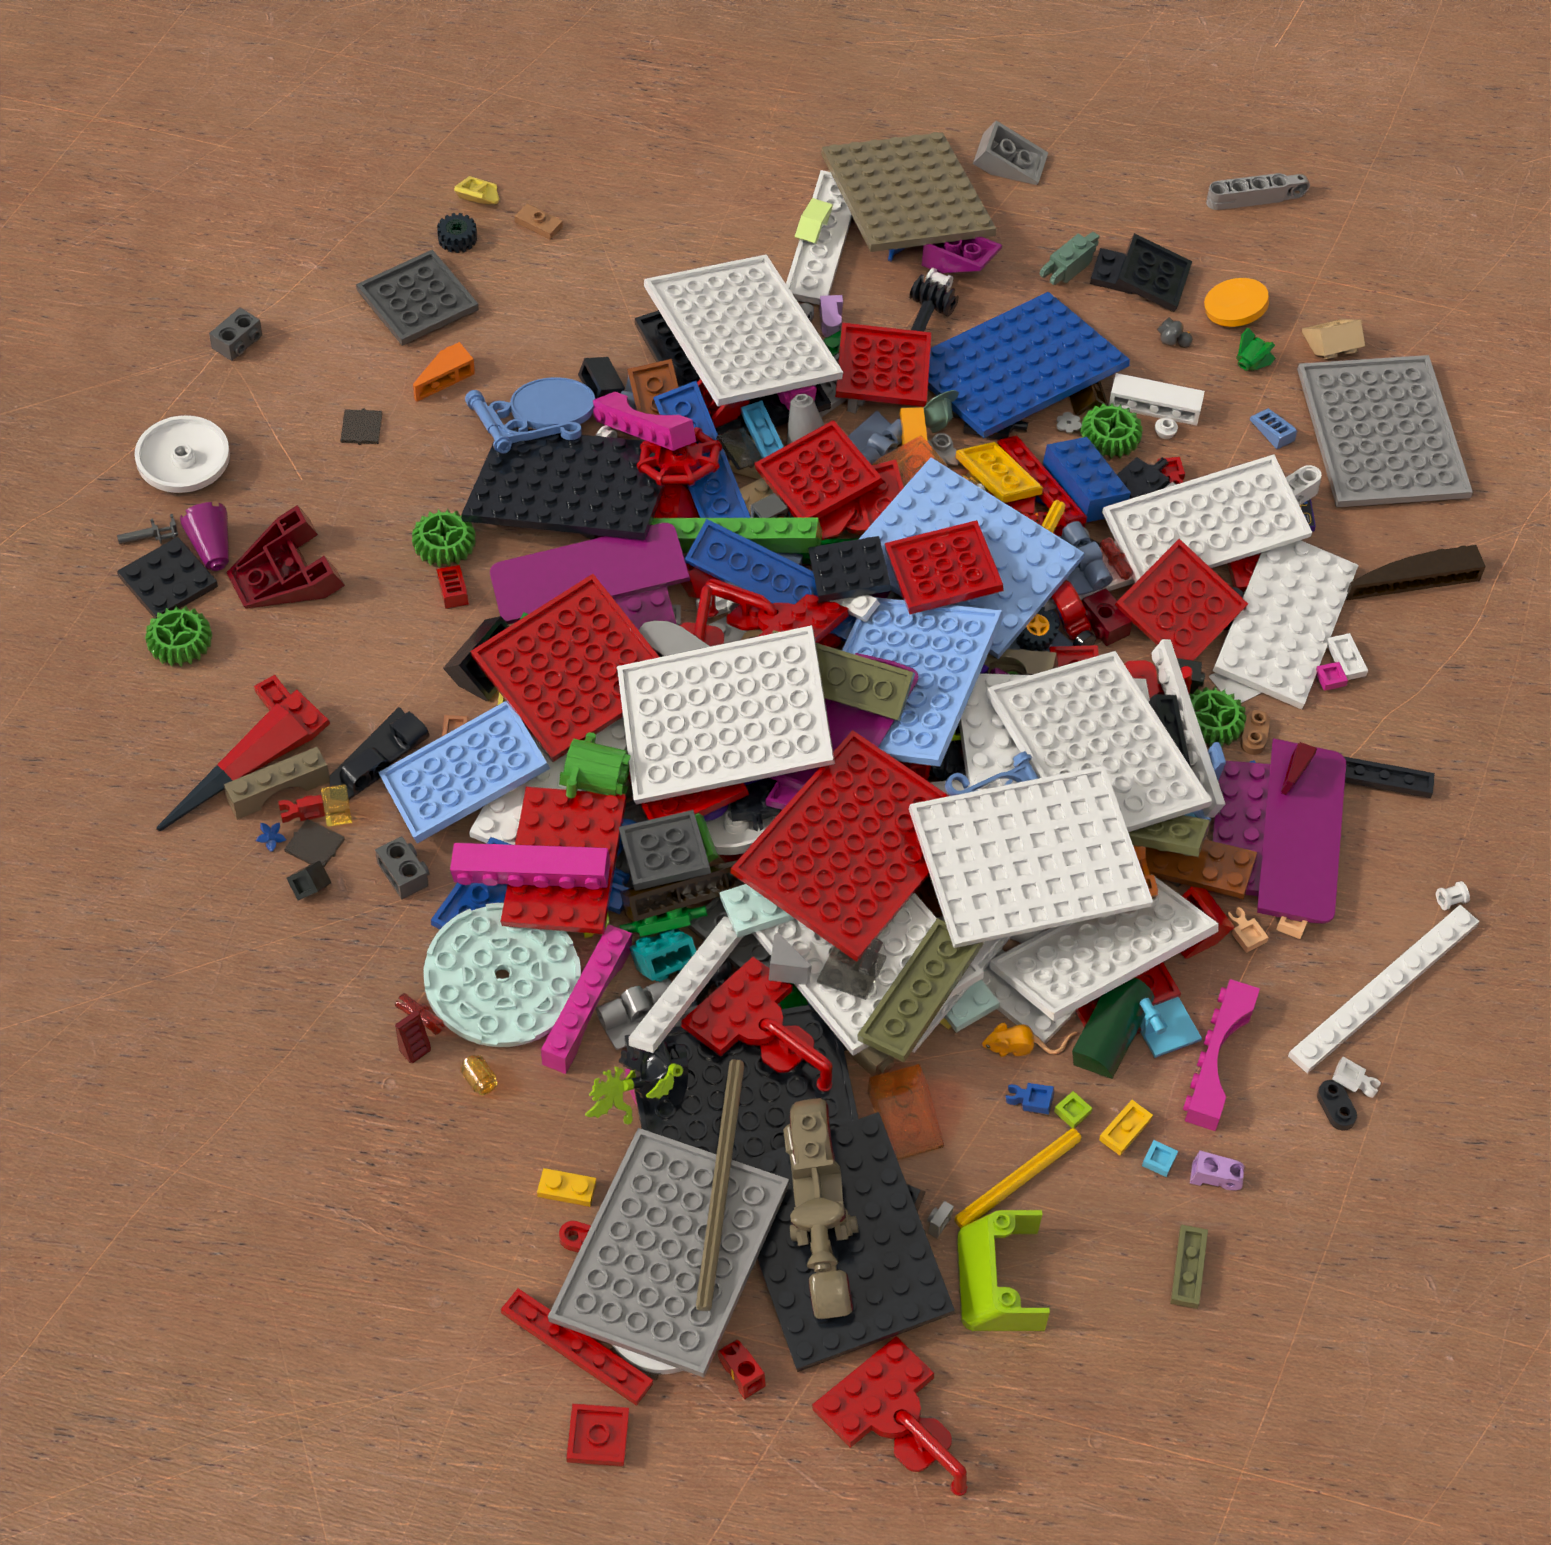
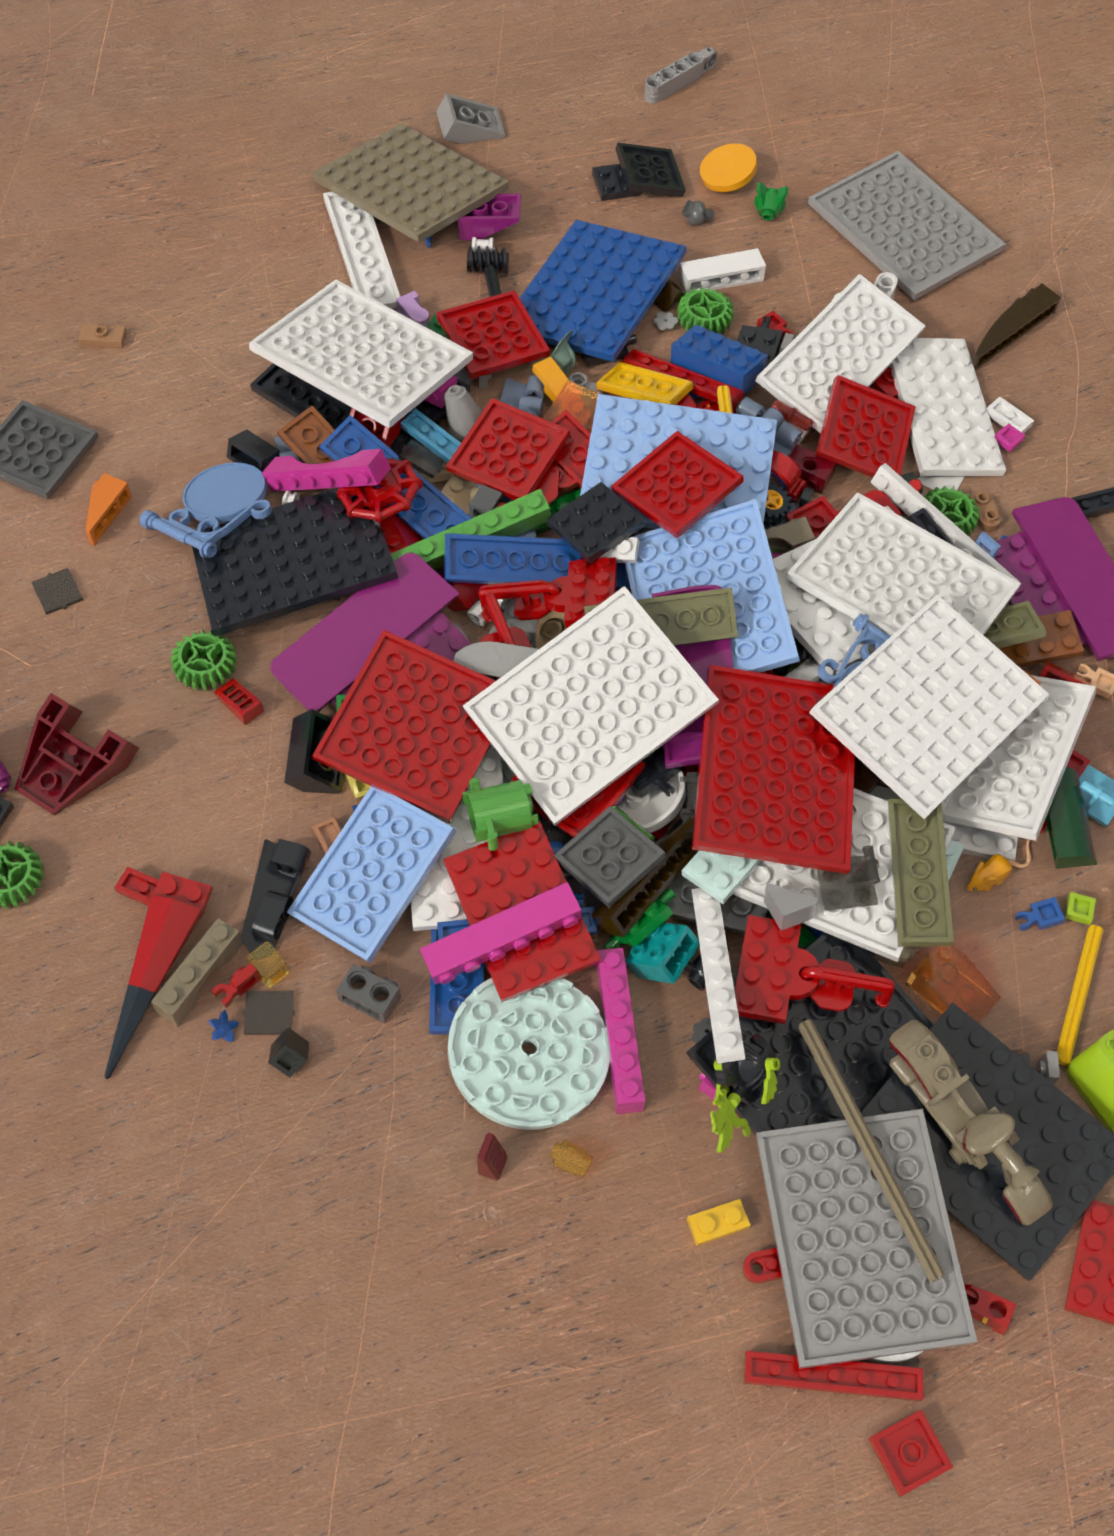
camera: 30 degrees left, 5 degrees up
(428, 1018) = (477, 1127): clear red pin -> none
(457, 232) = (34, 376): black wheel -> none
(477, 191) = (29, 331): light yellow slope -> none
(625, 1014) = (673, 1020): light grey panel -> none
(812, 220) = (349, 237): yellowish green slope -> none
(1070, 258) = (577, 184): sand green hinge -> none
(1166, 428) = (743, 292): white plate -> none
(1278, 440) = (829, 259): medium blue slope -> none
(1298, 763) = (1051, 523): dark red slope -> none
(1335, 337) = (820, 165): tan slope -> none

